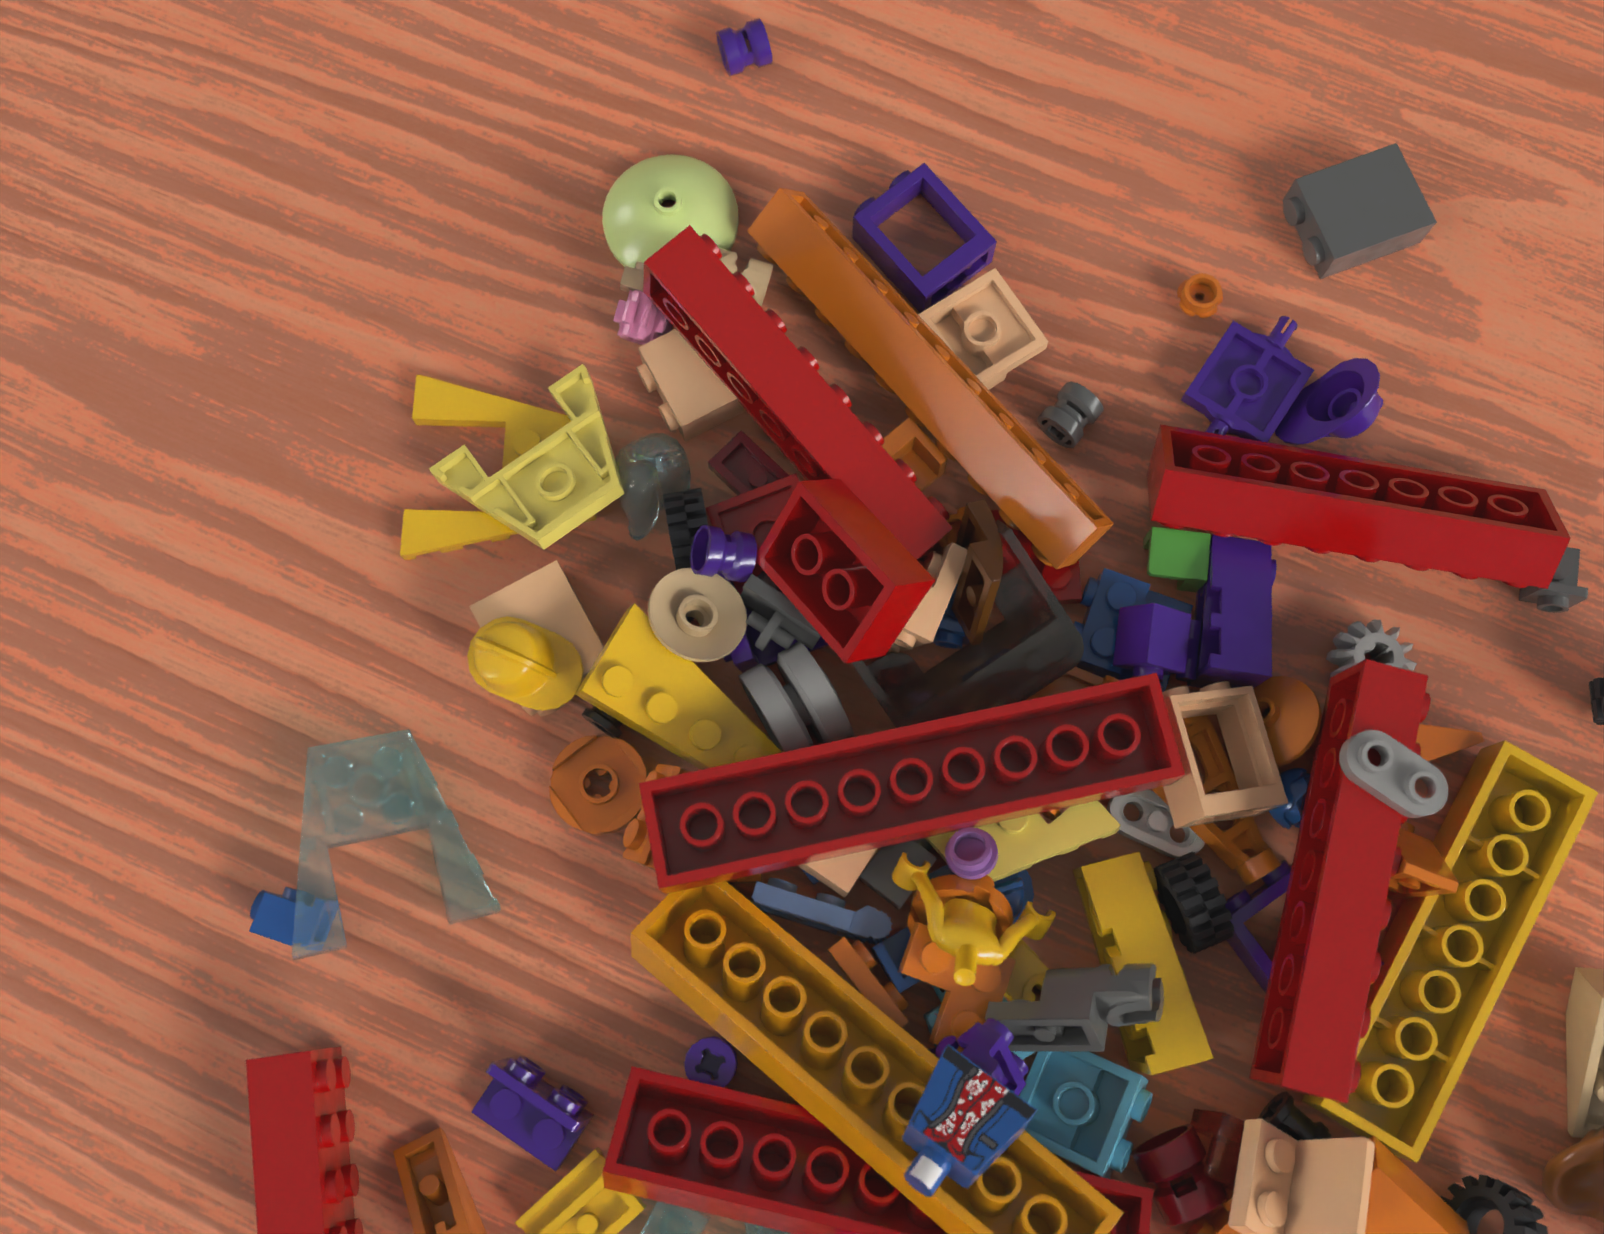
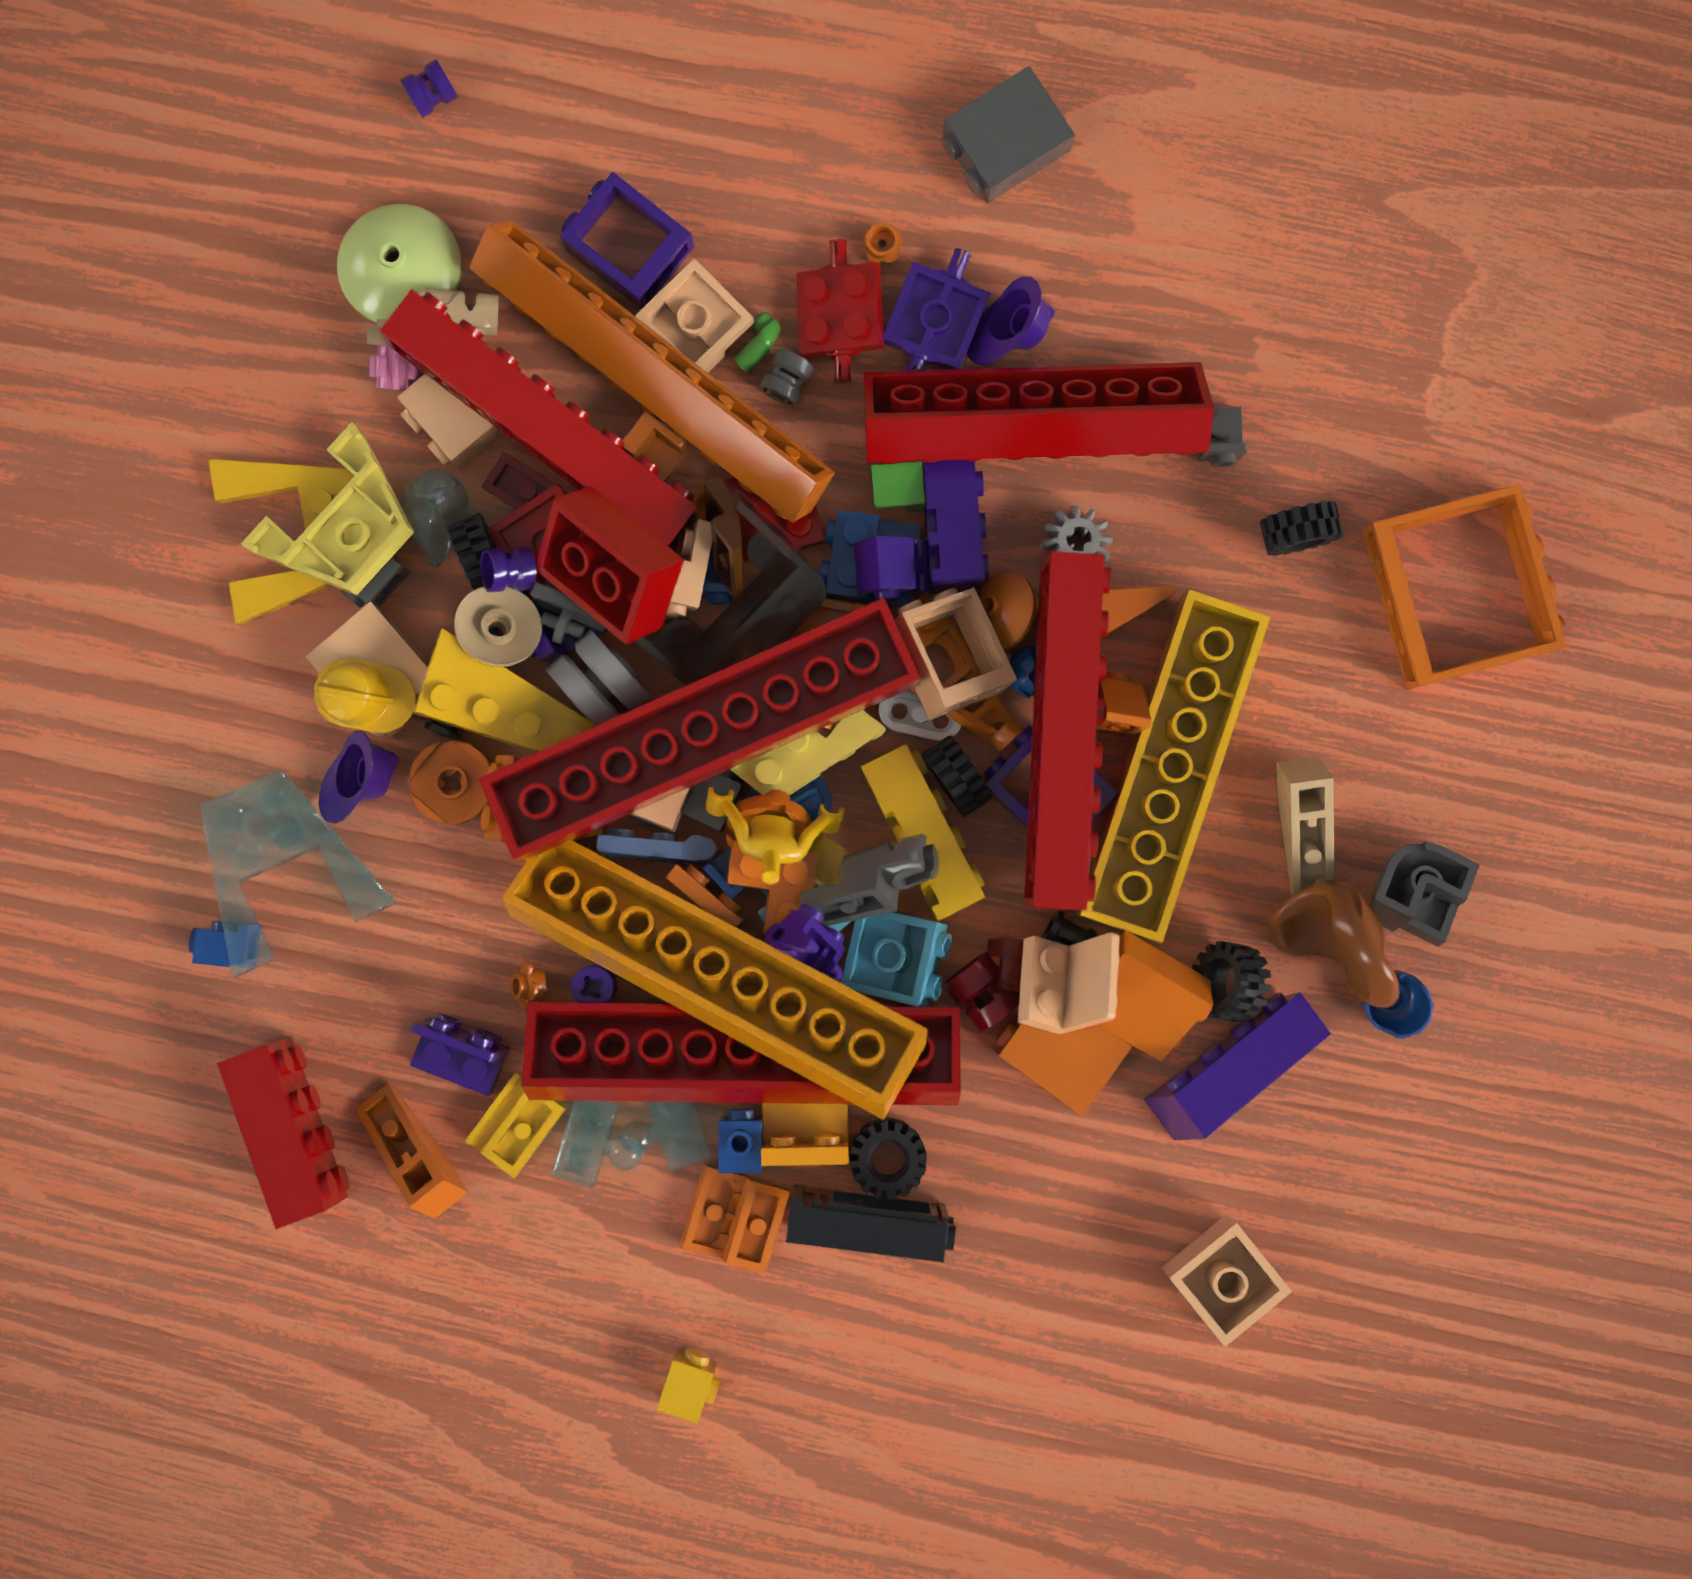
camera: 10 degrees left, 10 degrees up
(491, 754) = (356, 776): none -> dark purple piece
(571, 546) = (381, 585): none -> dark grey bracket
(634, 1045) = (528, 985): none -> orange plate
(961, 1124) = (788, 989): torso -> none
(971, 853) = (764, 776): medium lavender plate -> none
(1046, 376) = (761, 344): none -> bright green arm
(1142, 356) = (839, 310): none -> red plate
(1396, 774) = (1086, 642): light grey plate -> none

